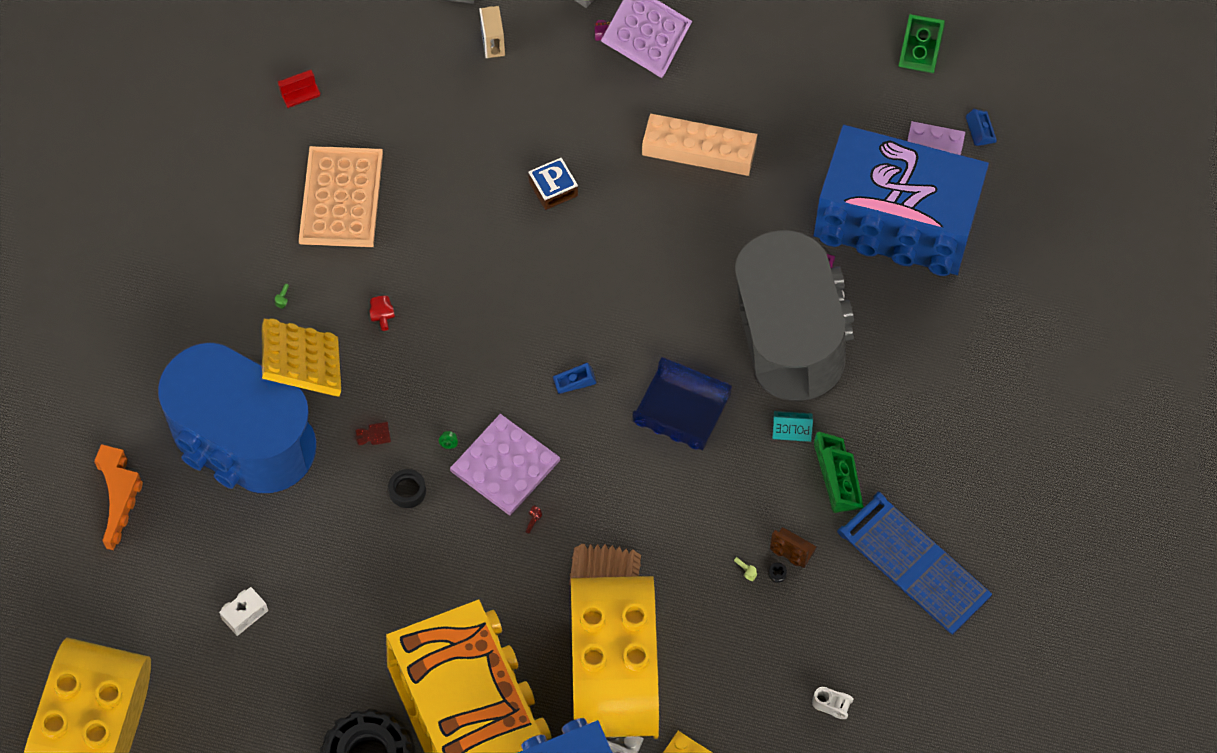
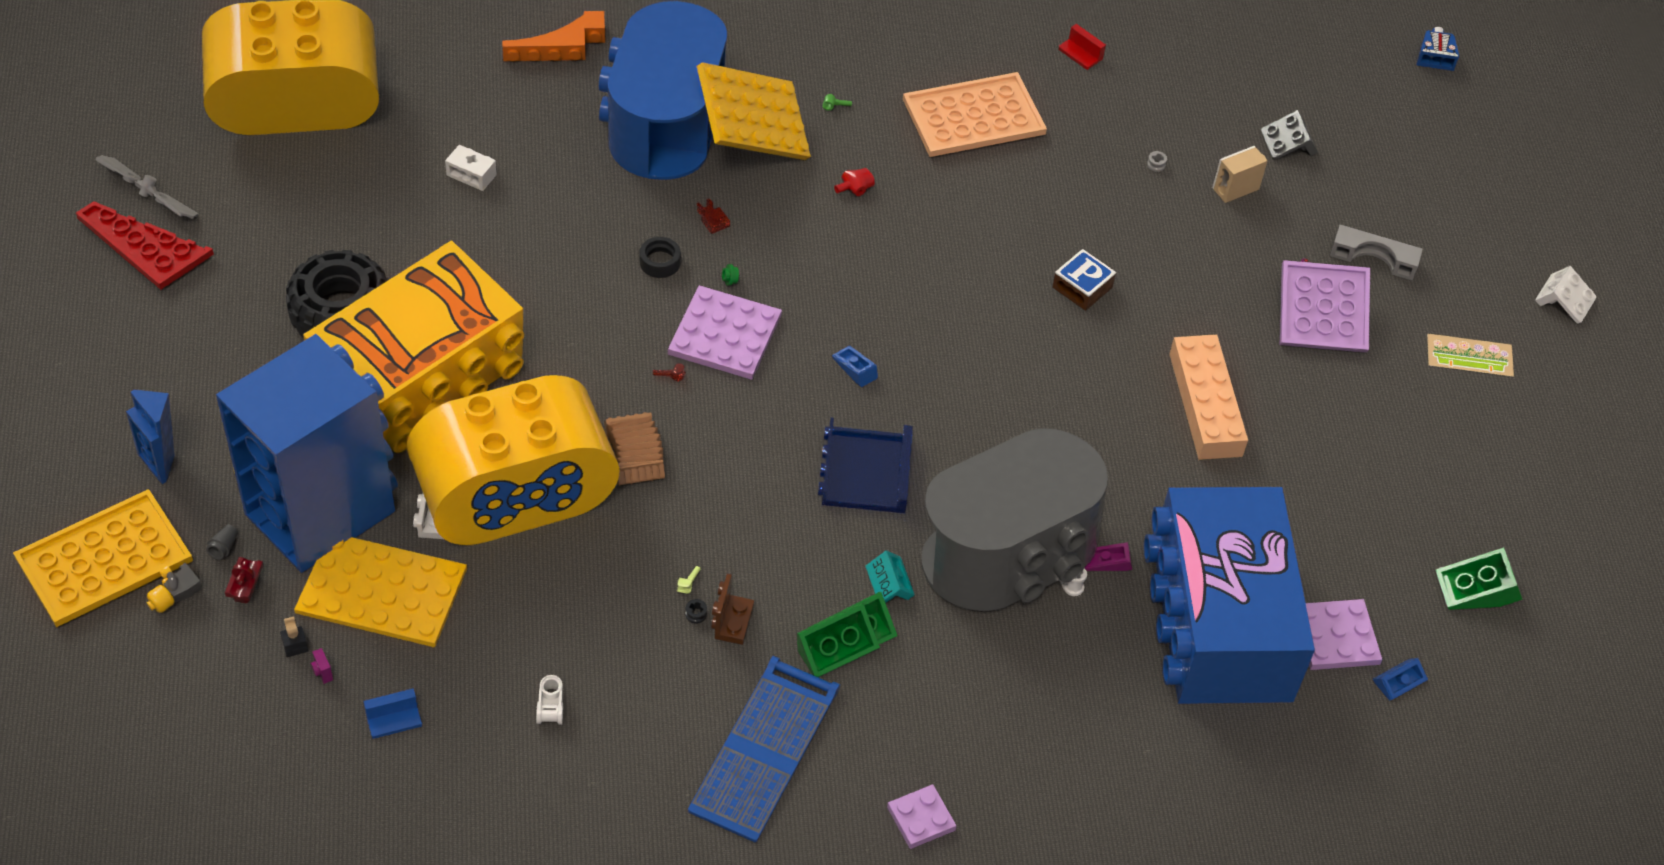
camera: 65 degrees right, 10 degrees down
(443, 80) = (1157, 156): none -> light grey bush
(1004, 476) = (921, 816): none -> lavender plate

